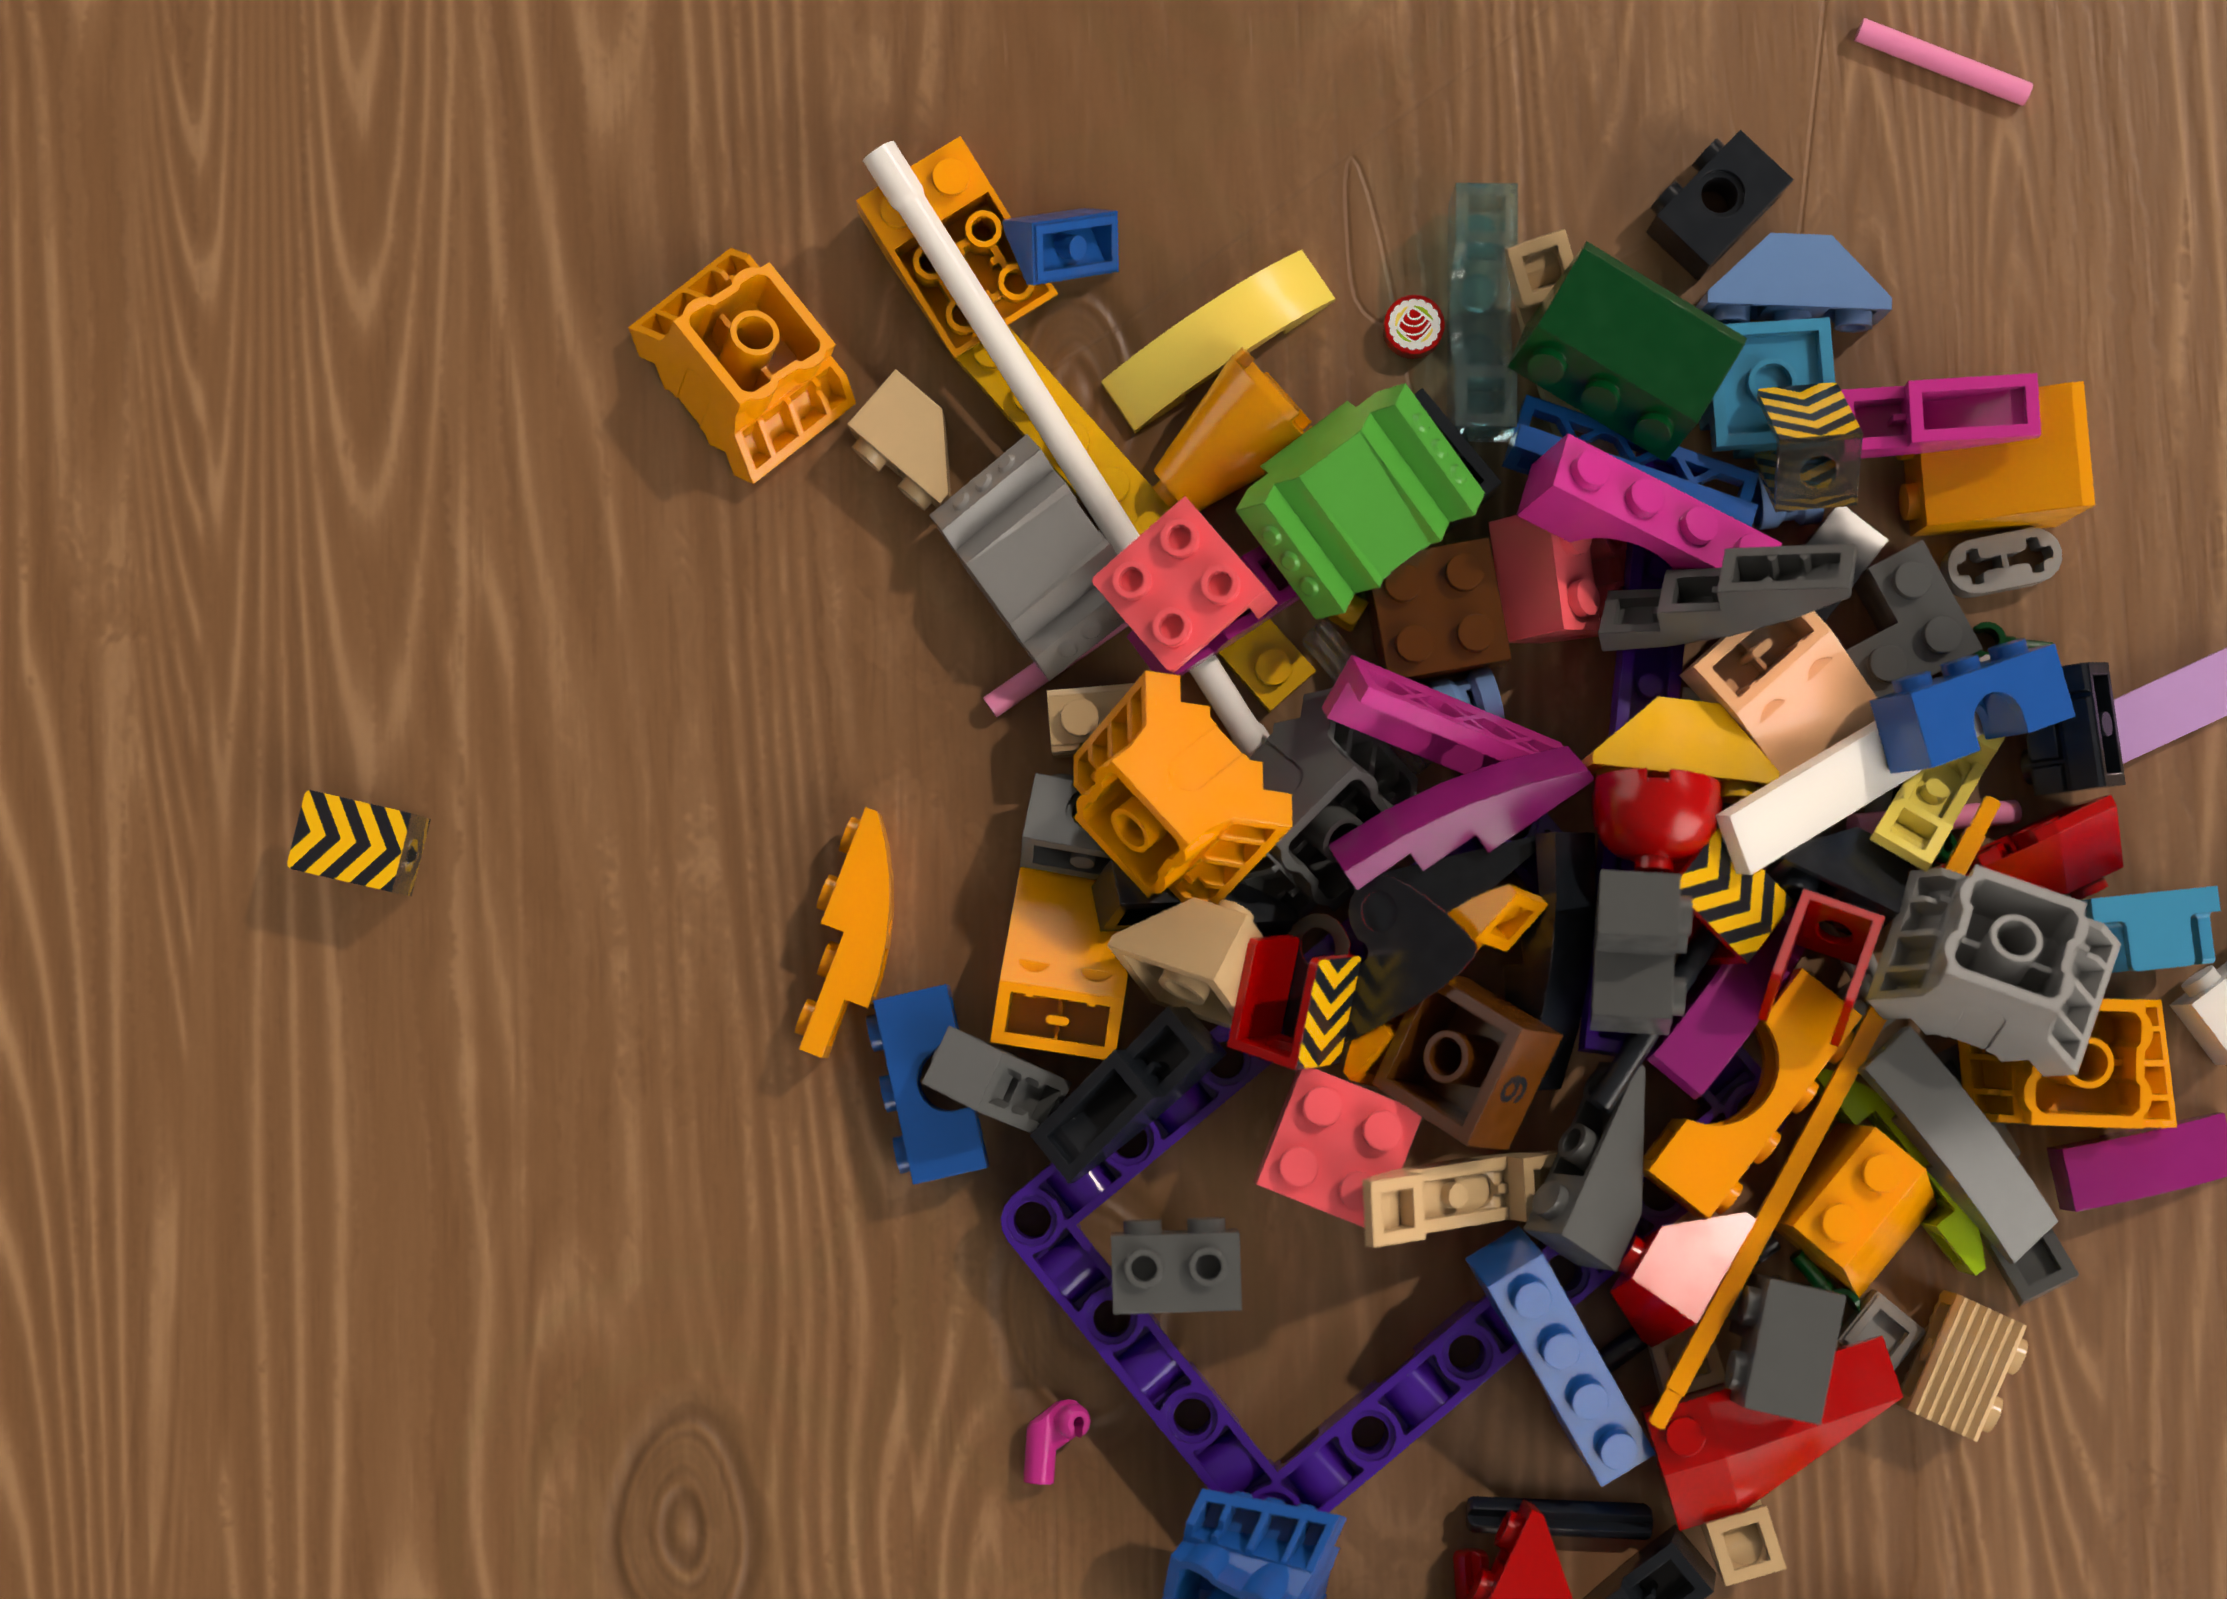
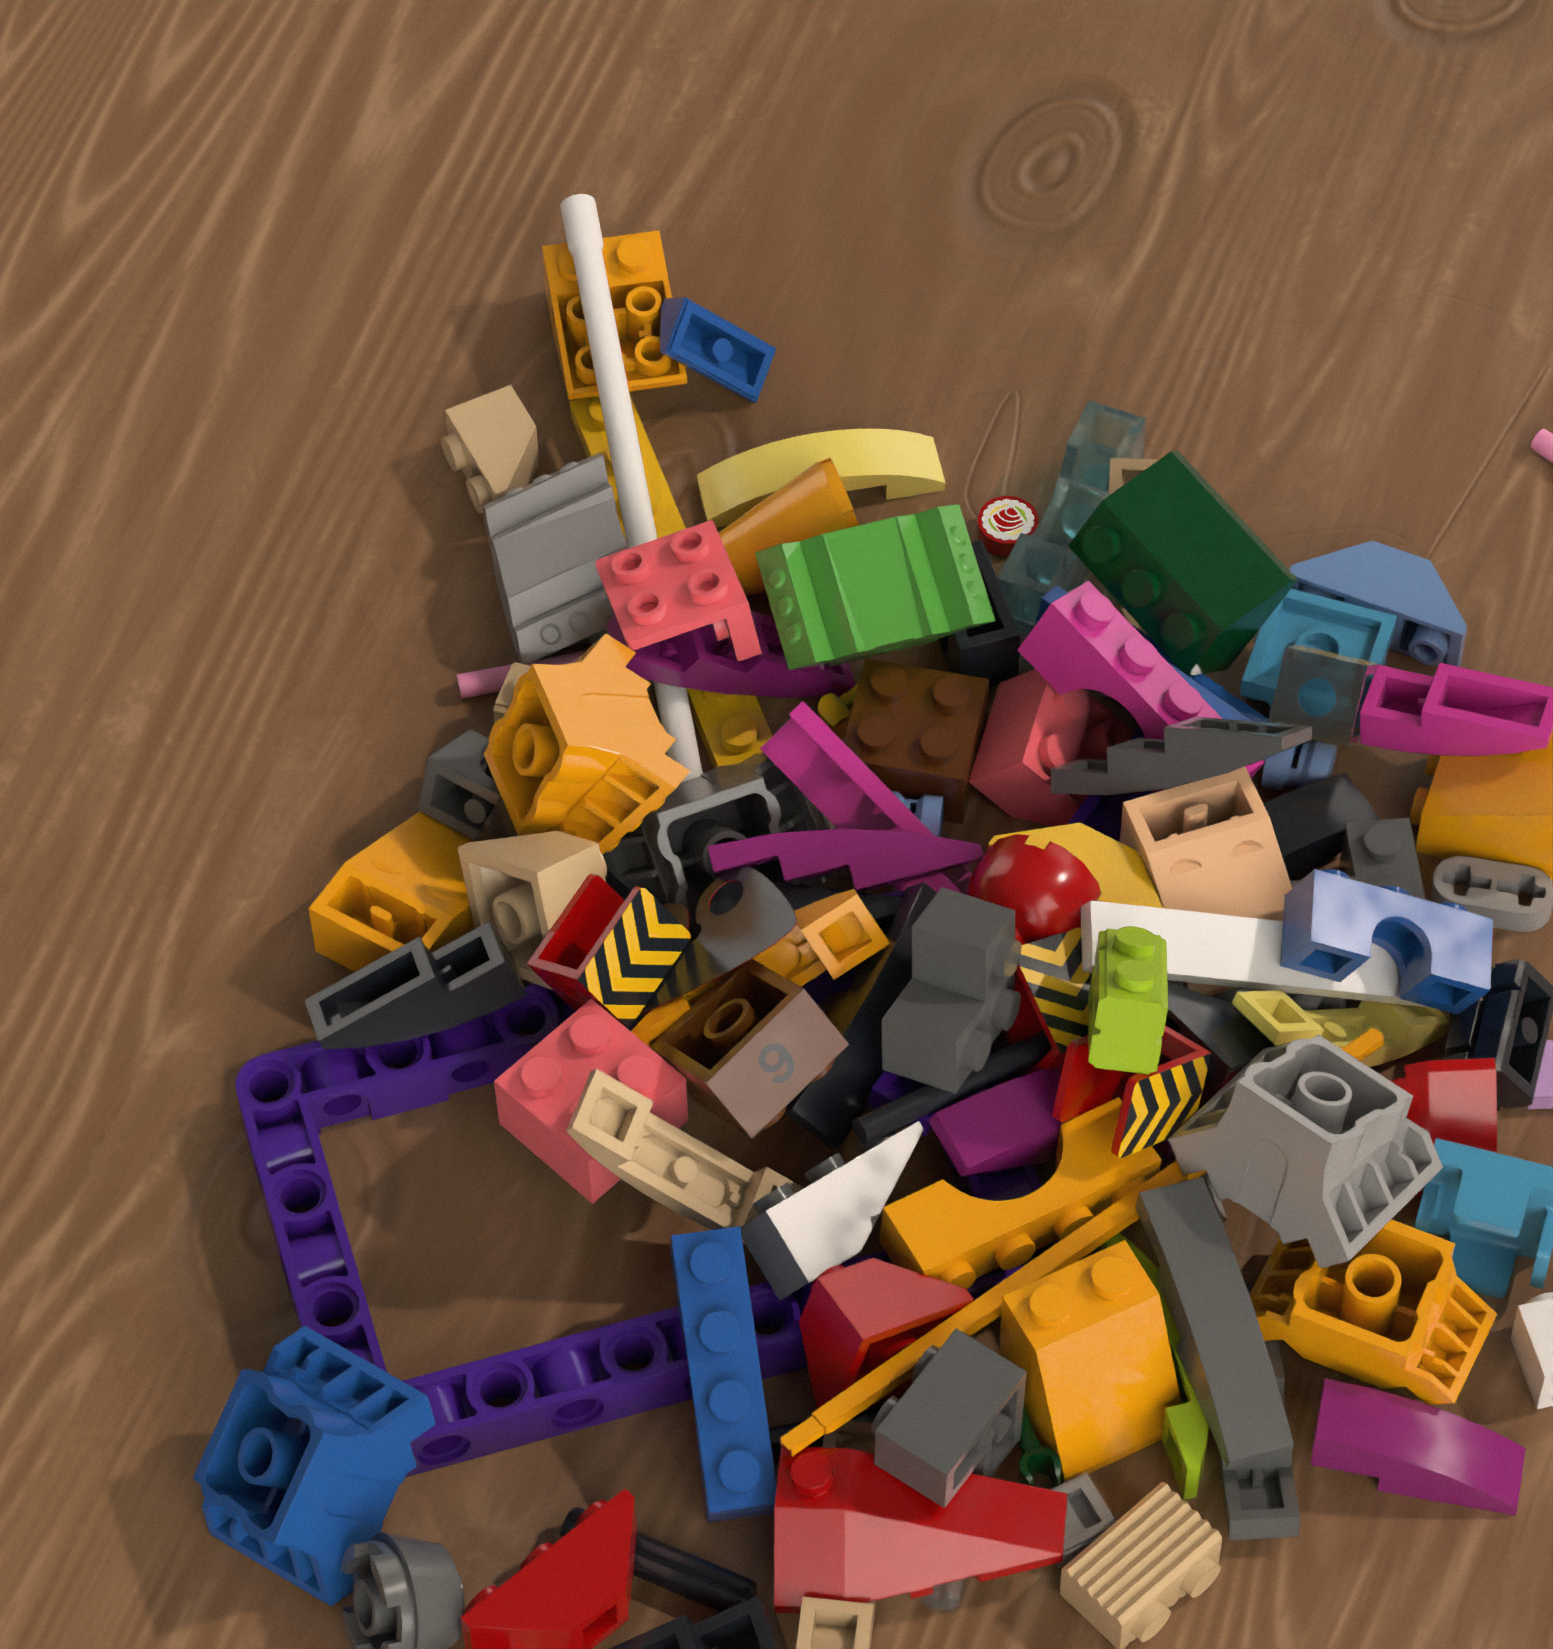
camera: 20 degrees right, 30 degrees down
(745, 362) = (381, 348): light orange slope -> none
(863, 908) = (246, 805): light orange slope -> none
(933, 1139) = (242, 908): blue arch -> none
(994, 1081) = (291, 942): dark grey brick -> none
(1049, 1433) = (185, 1298): dark pink arm -> none
(1176, 1268) = (381, 1151): dark grey brick -> none
(1746, 181) = (1338, 512): black brick -> none
(1812, 920) = (1128, 1000): none -> lime brick

